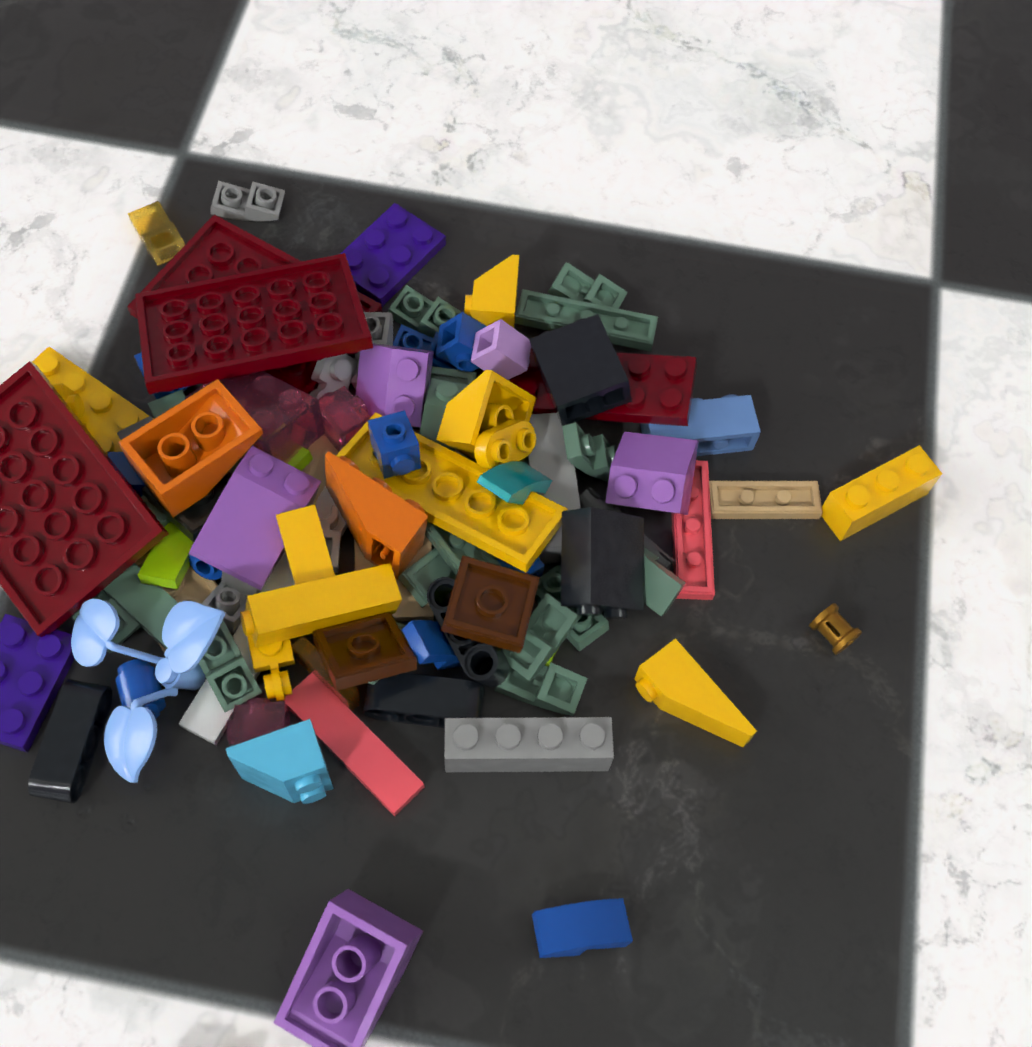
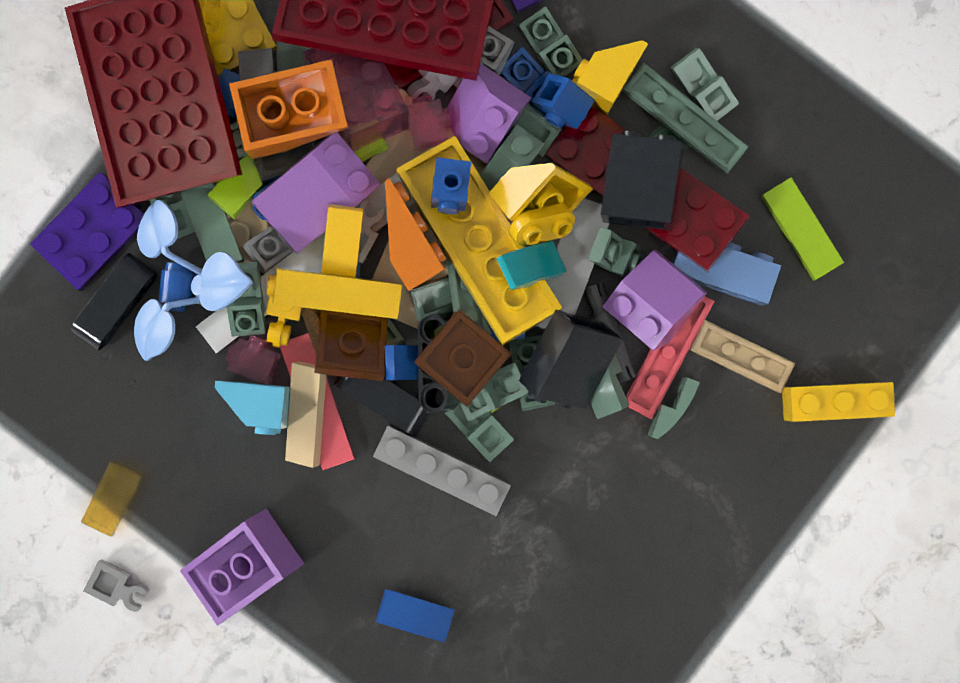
camera: 25 degrees right, 25 degrees up
(152, 975) = (111, 498): none -> clear yellow tile
(346, 756) = (305, 415): none -> tan tile
(501, 350) = (586, 129): lavender brick -> none
(687, 692) = (582, 482): yellow slope -> none
(729, 576) = (667, 417): none -> sand green slope
(748, 368) = (802, 229): none -> lime tile
(823, 625) = (729, 494): pearl gold bush -> none

